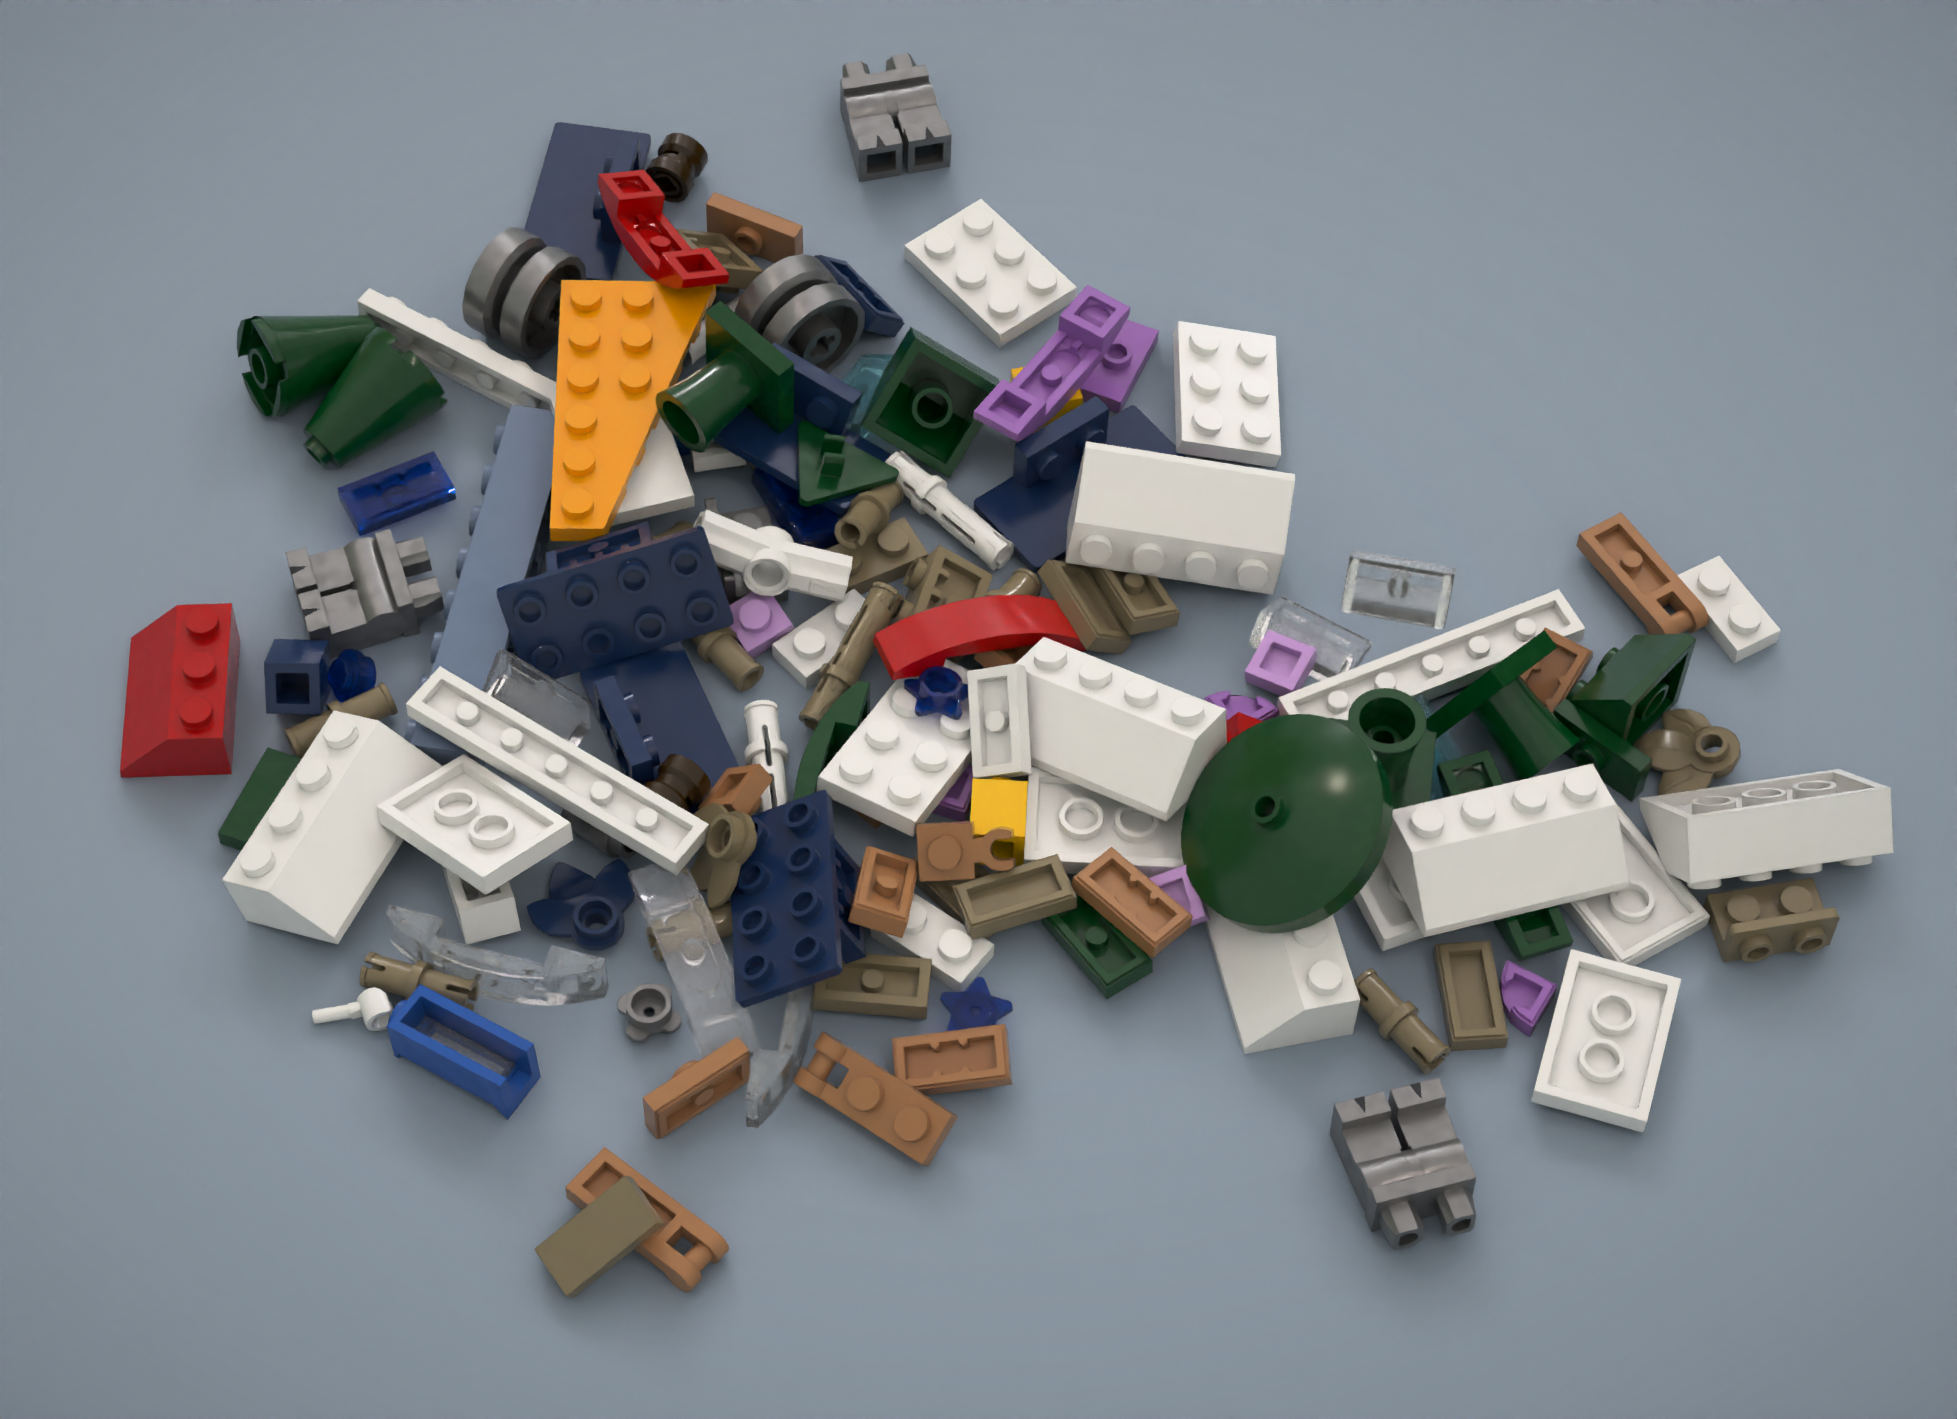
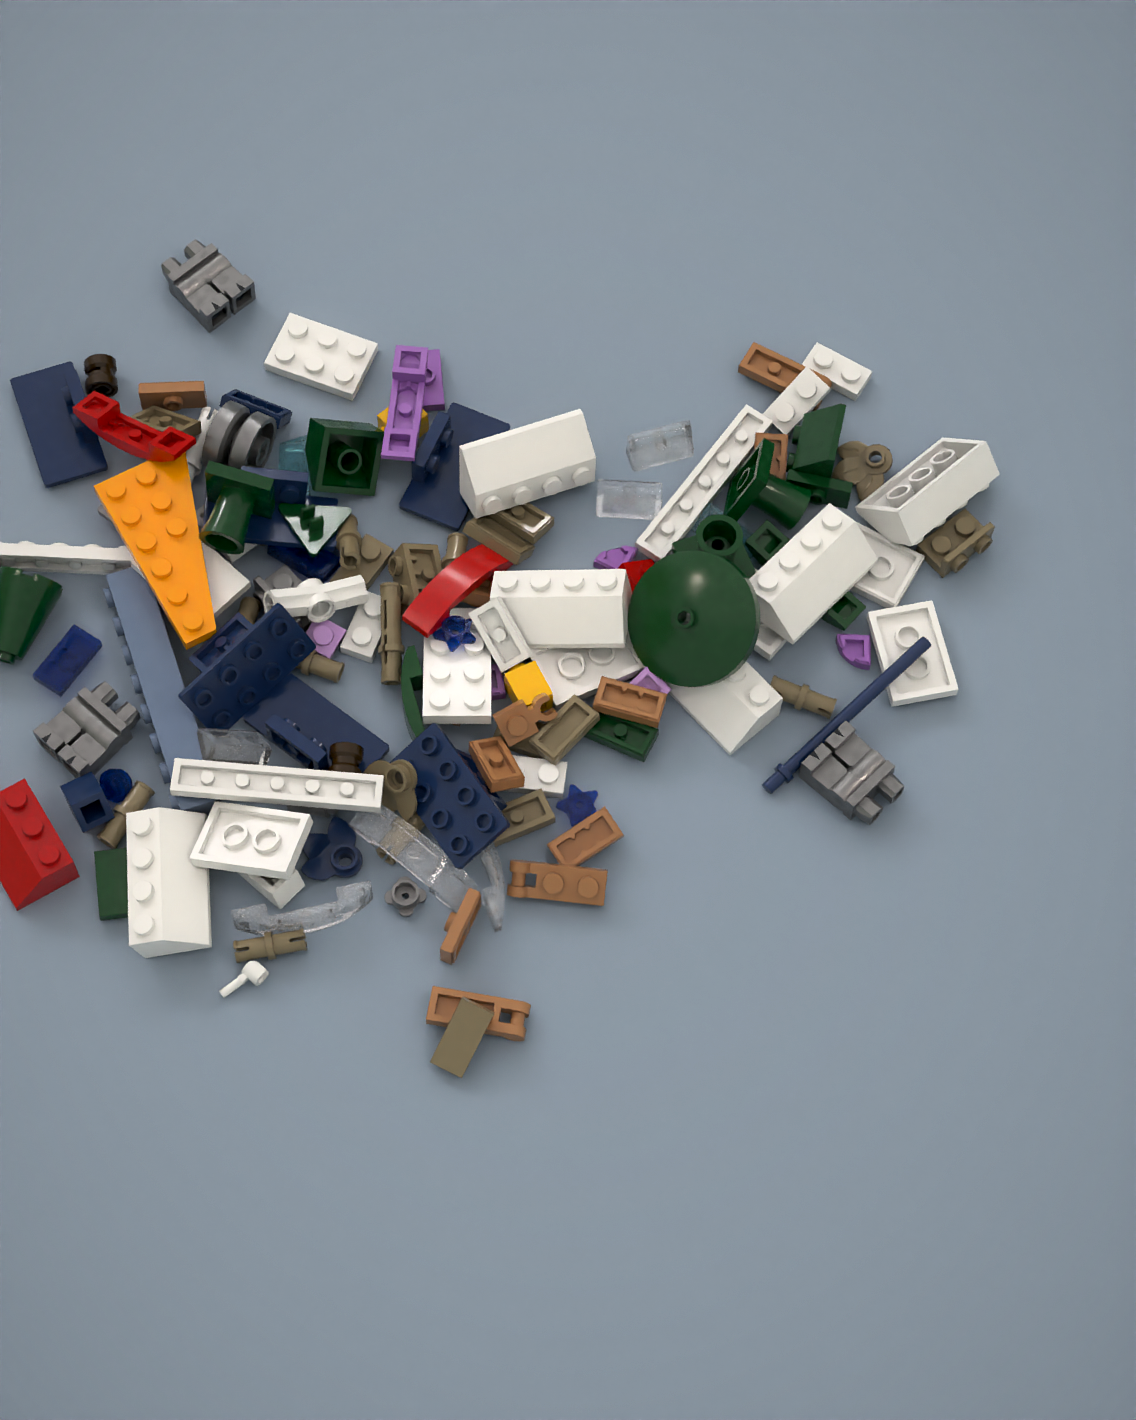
camera: 30 degrees left, 10 degrees up
(464, 1049) = (319, 970): blue window -> none
(518, 291) = (68, 501): flat silver wheel -> none
(740, 789) = (380, 745): medium nougat plate -> none
(764, 728) = (379, 716): white pin -> none
(931, 496) = (392, 518): white pin -> none
(1226, 394) = (499, 371): white plate -> none
(1280, 664) = (624, 521): lavender plate -> none
(1309, 1113) = (785, 771): none -> dark blue bar
(1470, 995) = (828, 663): dark tan tile -> none
(1644, 610) = (796, 400): none -> white plate

